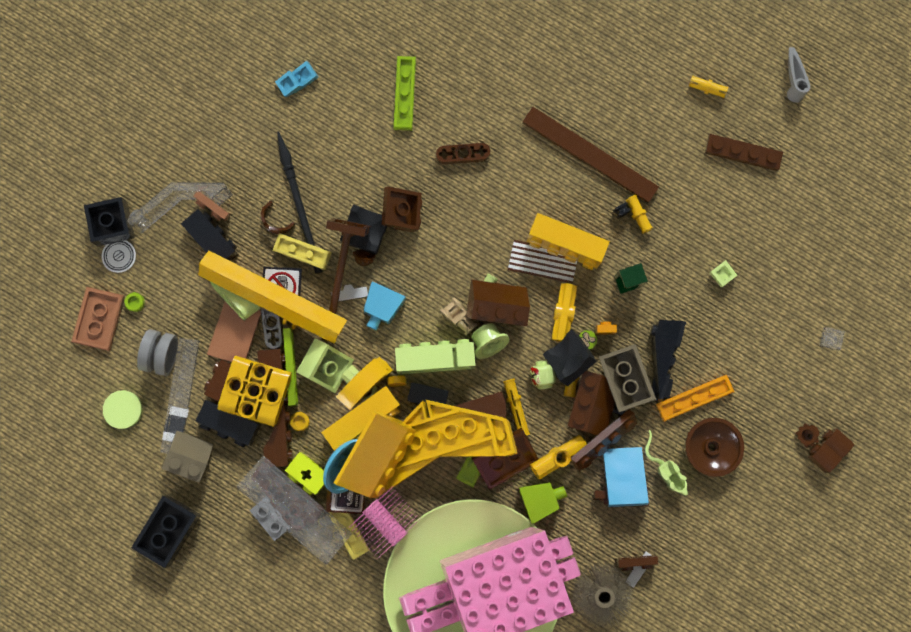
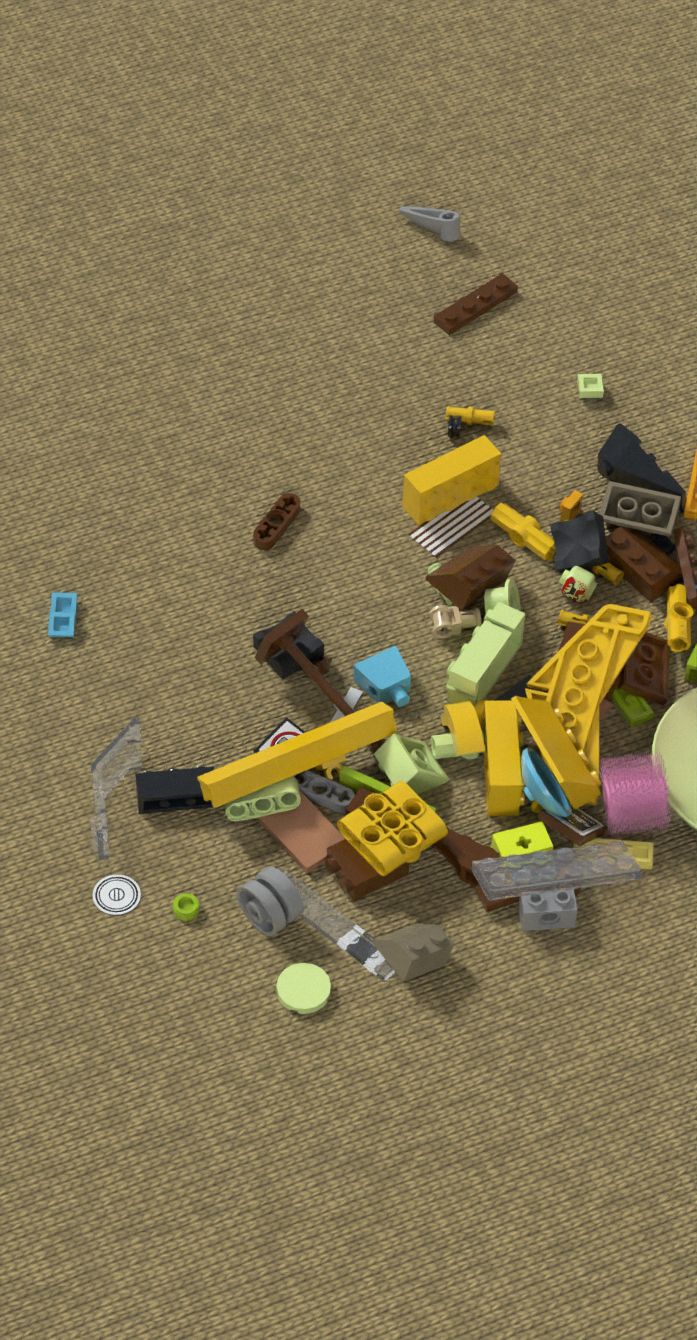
camera: 55 degrees left, 30 degrees down
(98, 319) = (175, 953): nougat tile -> none
(108, 221) = (74, 867): black brick -> none
(166, 531) = (484, 1013): black brick -> none
(217, 212) = (128, 765): nougat plate -> none
(227, 424) = (404, 890): black brick -> none
(270, 228) = (223, 720): reddish brown helmet -> none
(286, 160) = (146, 675): black piece -> none
(300, 421) = (457, 824): yellow tile -> none
(302, 251) = (264, 715): light yellow tile -> none
(401, 209) = (297, 595): reddish brown plate -> none
(404, 93) = (164, 534): lime tile -> none
(590, 154) = (370, 421): reddish brown tile -> none
(630, 278) = (535, 452): dark green panel -> none
(708, 86) = (383, 291): yellow pin -> none

